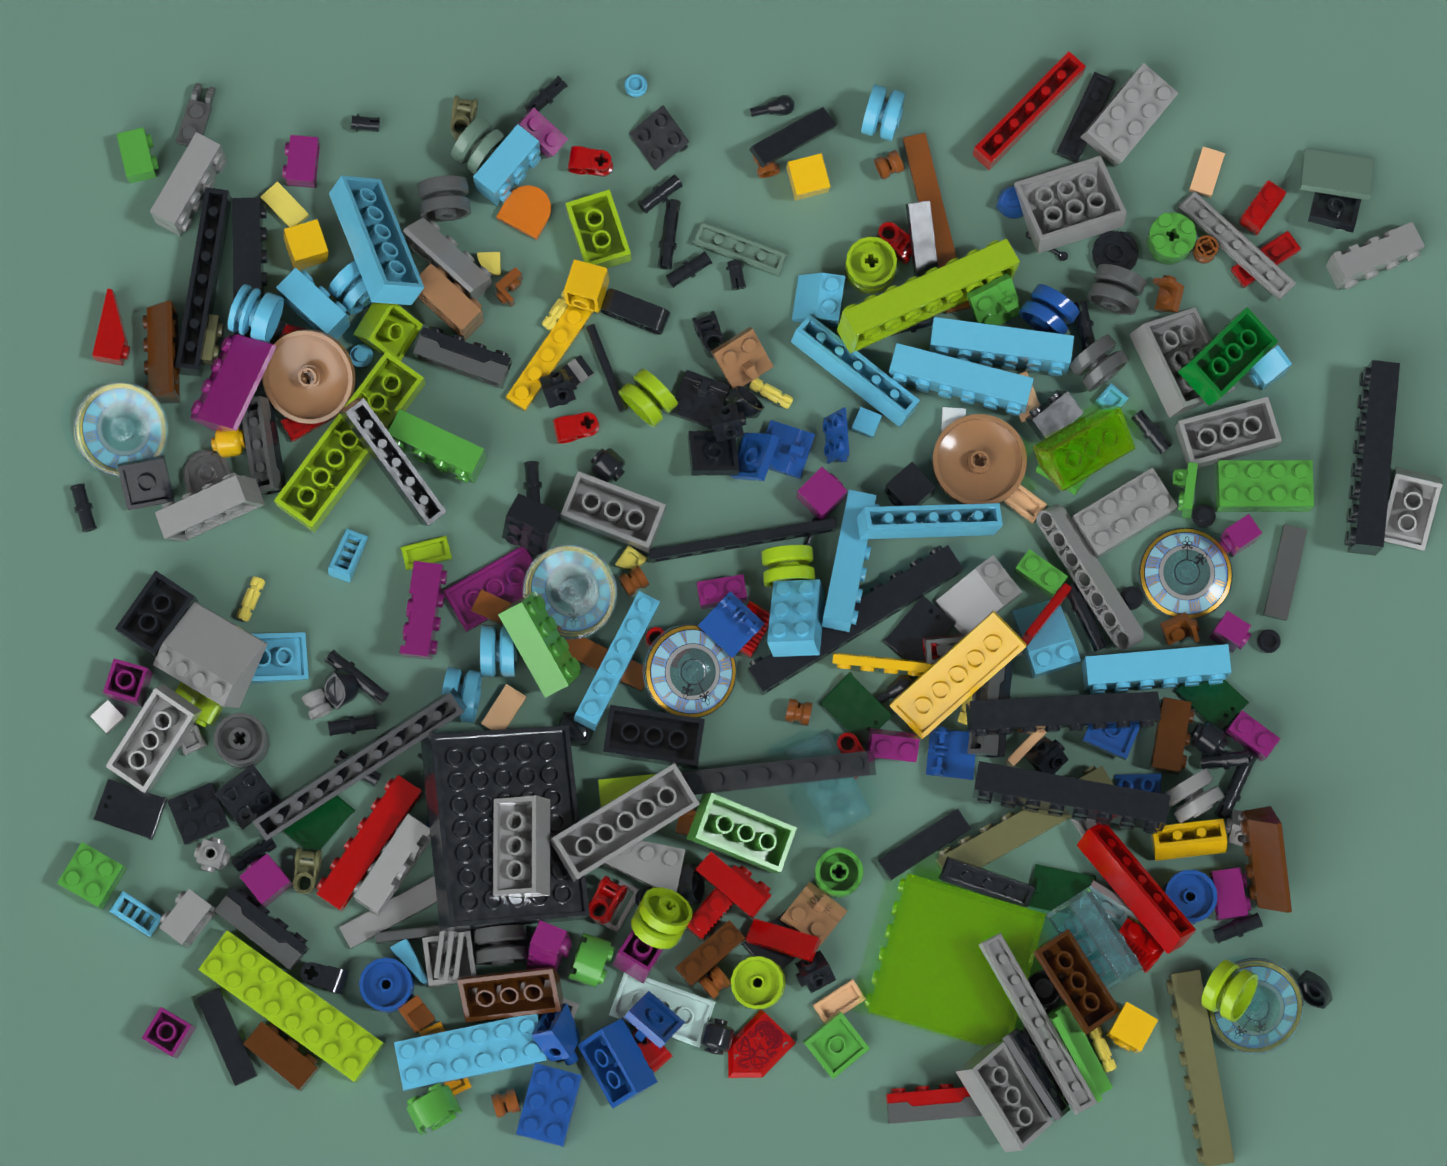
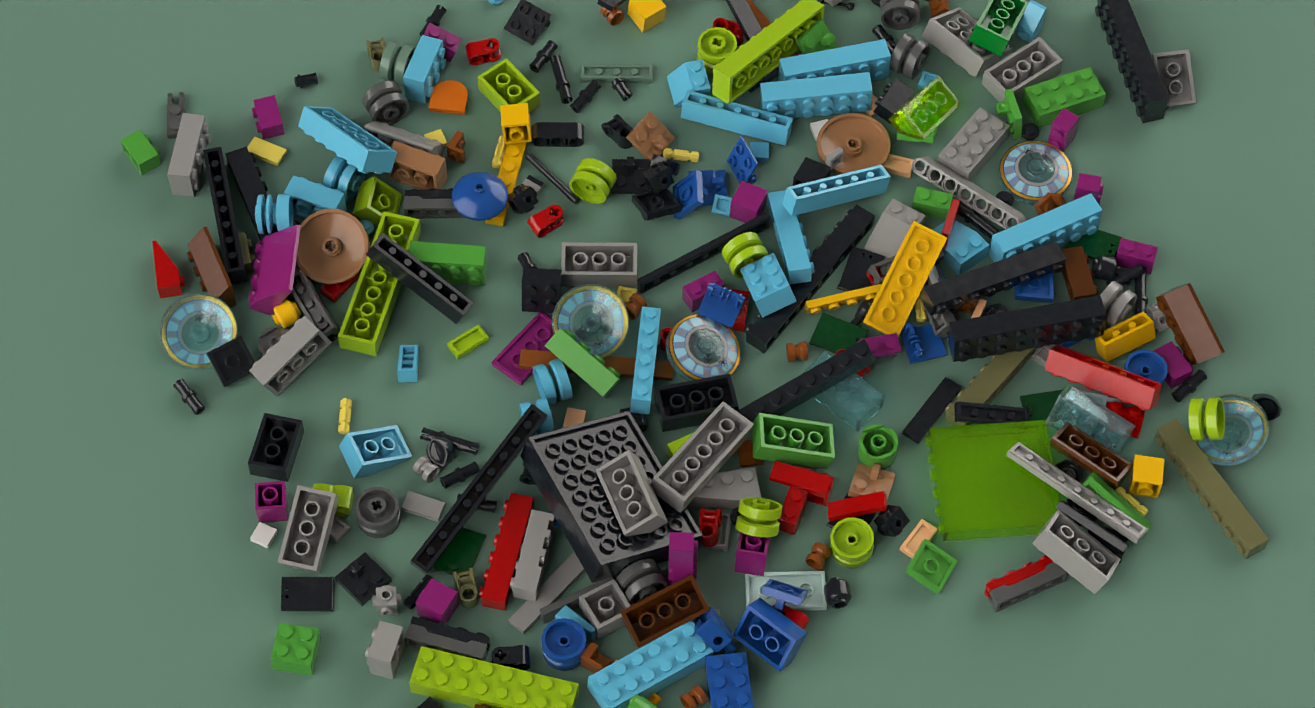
camera: 20 degrees left, 20 degrees down
(140, 906) = (339, 673): medium azure slope -> none
(211, 655) = (332, 456): light grey slope -> none
(246, 796) = (396, 551): black hinge -> none
(297, 748) = (423, 506): none -> light grey tile
(305, 245) = (293, 162): yellow head -> none
(423, 610) = (483, 377): magenta wedge -> none
(446, 976) = (602, 585): light grey tile -> none
(511, 384) = (483, 203): none -> blue dish
(590, 960) = (716, 571): bright green brick -> none
(608, 465) = (581, 233): black head -> none
(691, 884) = (768, 490): black hat -> none
(710, 953) = (805, 536): reddish brown brick -> none
(757, 1047) = (871, 592): red tile -> none
(791, 481) = (721, 205): none -> medium azure tile
(944, 477) = (834, 158): none -> light grey tile
(1049, 310) = (858, 30): blue wheel -> none
(1151, 431) = (966, 90): black pin -> none
(1268, 641) = (1116, 194): black plate -> none
(1285, 572) = (1105, 148): dark grey tile -> none

